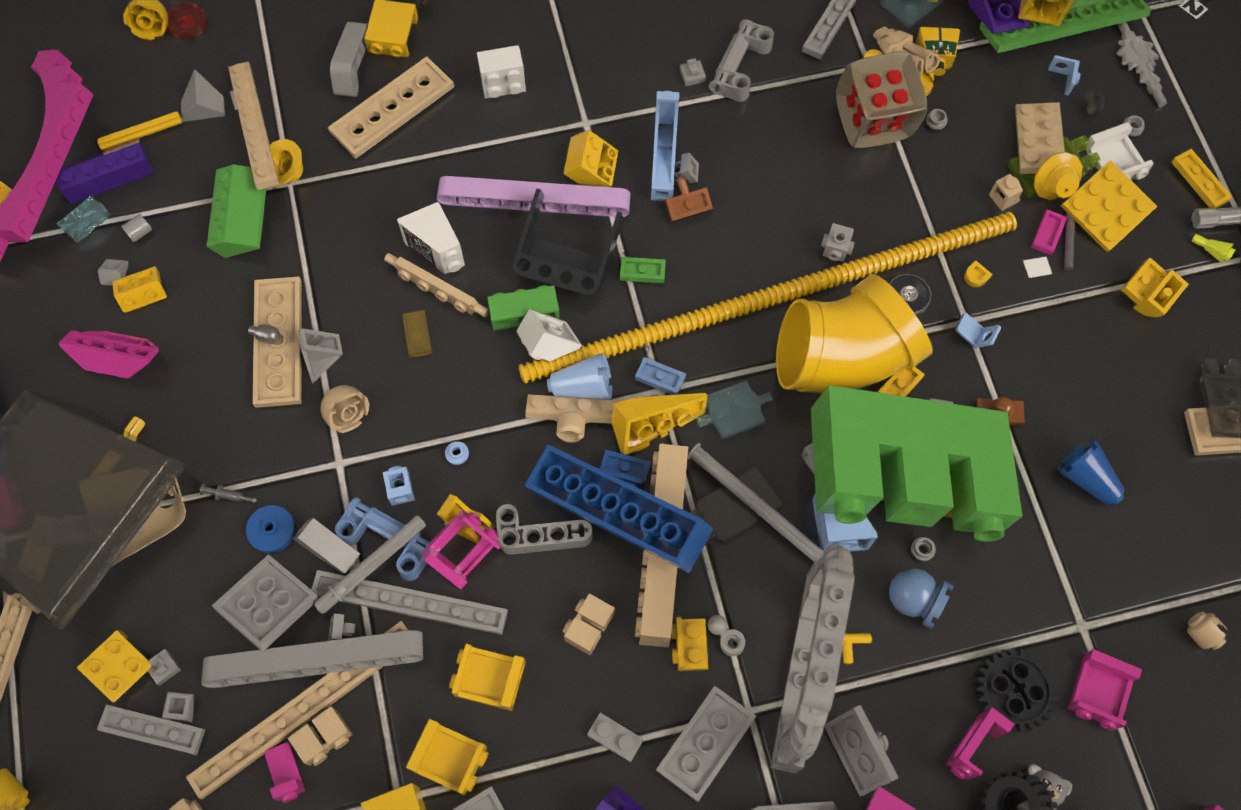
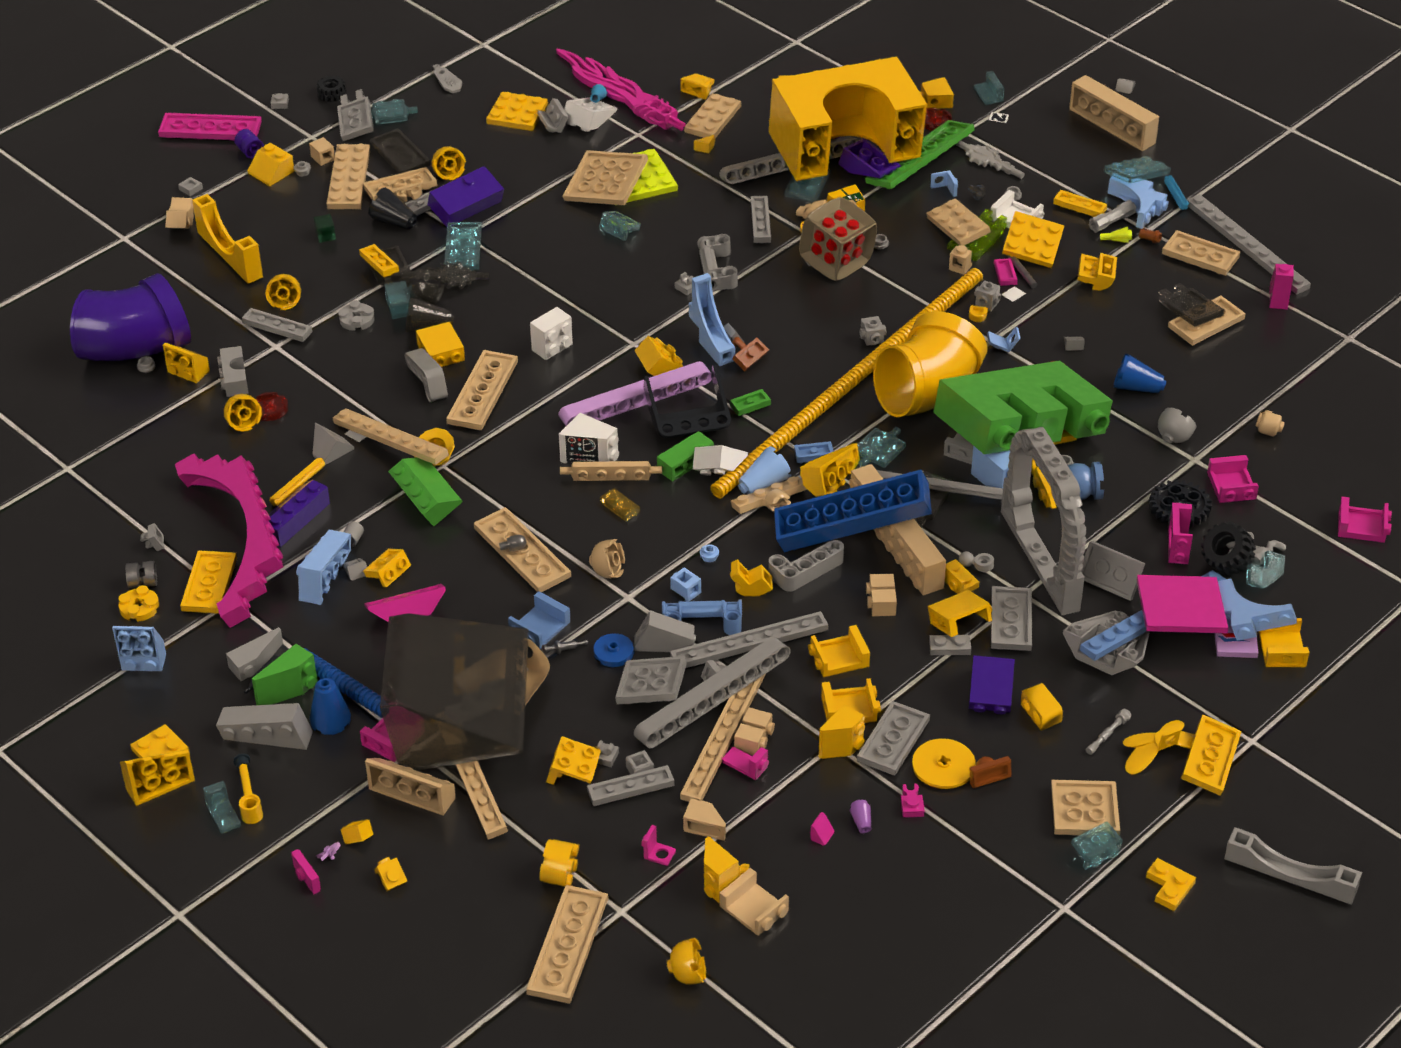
camera: 30 degrees left, 25 degrees down
(77, 253) = (322, 565): none -> light blue wedge
(84, 219) = (301, 546): clear light blue bracket -> none
(224, 449) = (543, 620): none -> medium blue panel
(319, 350) = (557, 542): light grey slope -> none
(371, 563) = (697, 651): light grey axle -> none
(458, 573) = (766, 607): dark pink panel -> none
(650, 704) = (946, 612): none -> yellow panel
(849, 639) = (1055, 530): yellow piece -> none
(876, 563) = (1043, 486): none -> yellow plate
(1001, 259) = (987, 295): none -> light grey brick
(1057, 376) = (1074, 343): none -> light grey slope
(1058, 176) = (988, 235): yellow hat -> none
(1085, 574) = (1175, 426): none -> light grey cylinder

